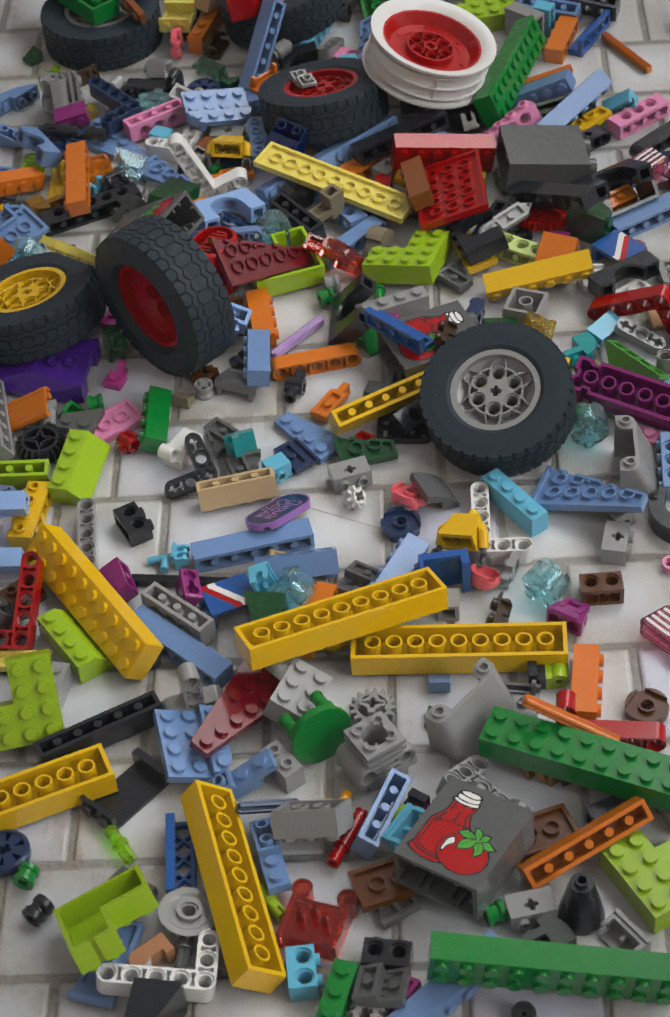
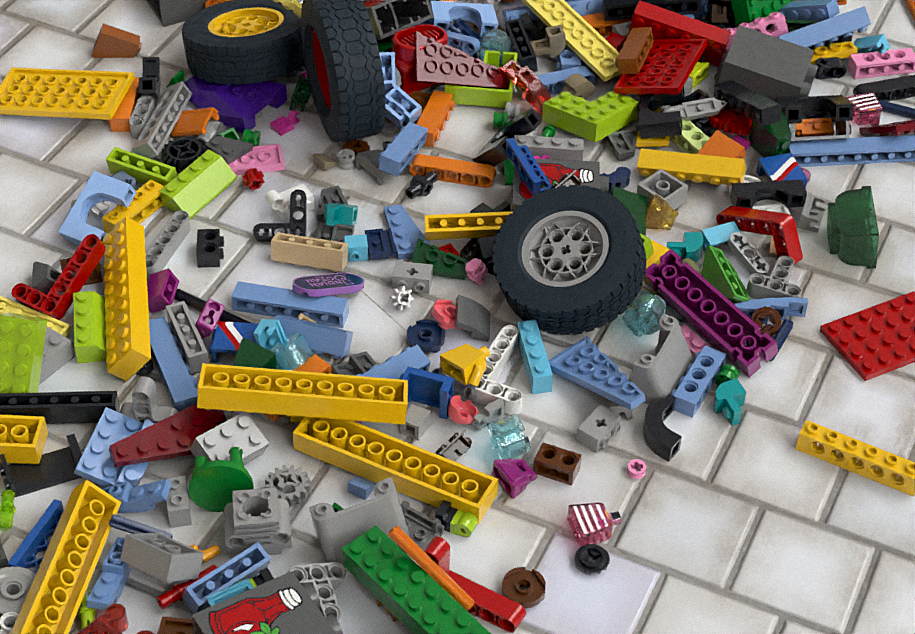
camera: 20 degrees right, 0 degrees up
(156, 418) = (288, 167): green brick -> none
(178, 555) = (223, 288): medium azure arm -> none
(297, 337) = (454, 145): medium lavender axle -> none
(330, 401) = (443, 207): orange hinge -> none
(406, 445) = (476, 270): none -> bright pink piece
(586, 679) = (483, 542): orange brick -> none

